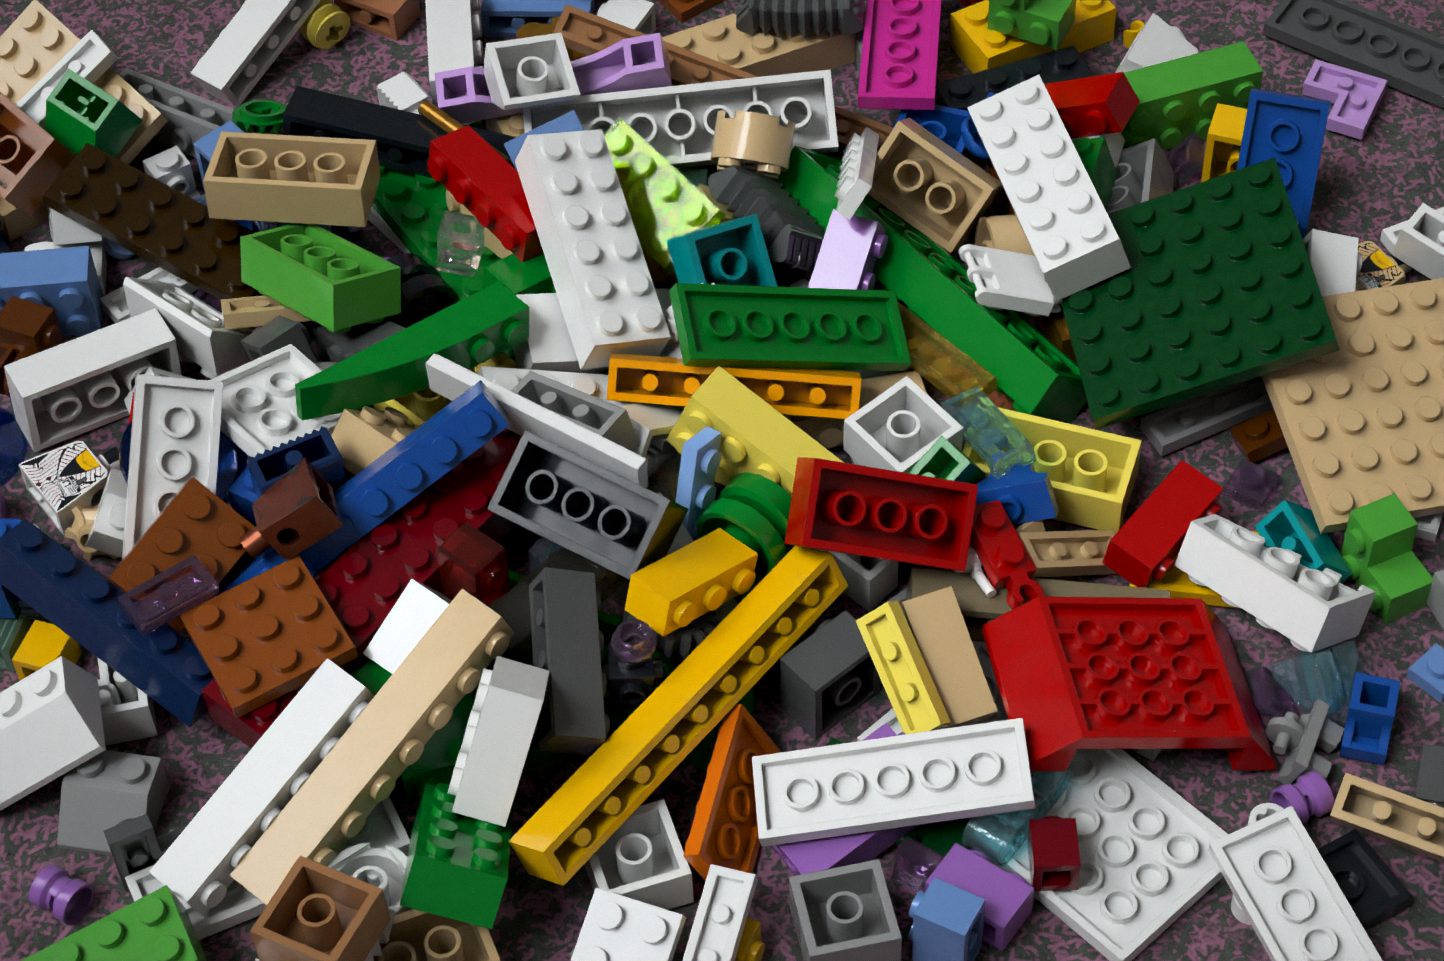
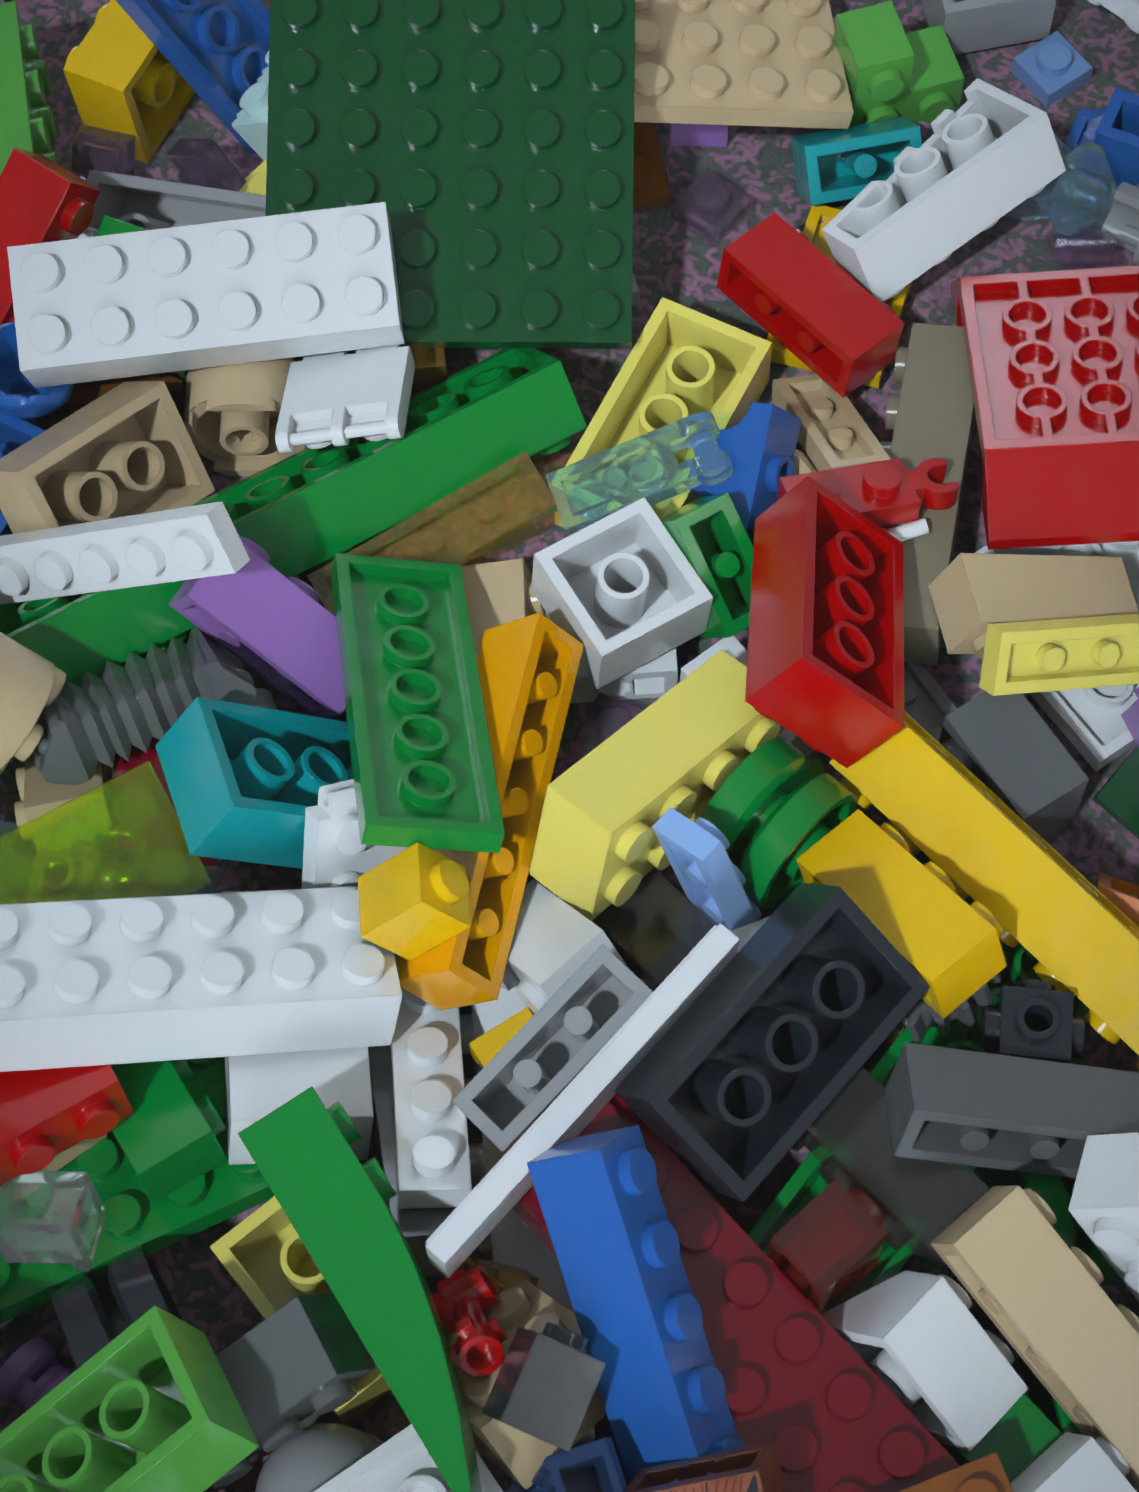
camera: 80 degrees left, 15 degrees up
(364, 422) = (545, 1384): none -> black brick
(393, 402) = (463, 1308): none -> red bar
(633, 631) = (1034, 984): clear purple plate -> none
(649, 335) = (413, 901): none -> yellow brick

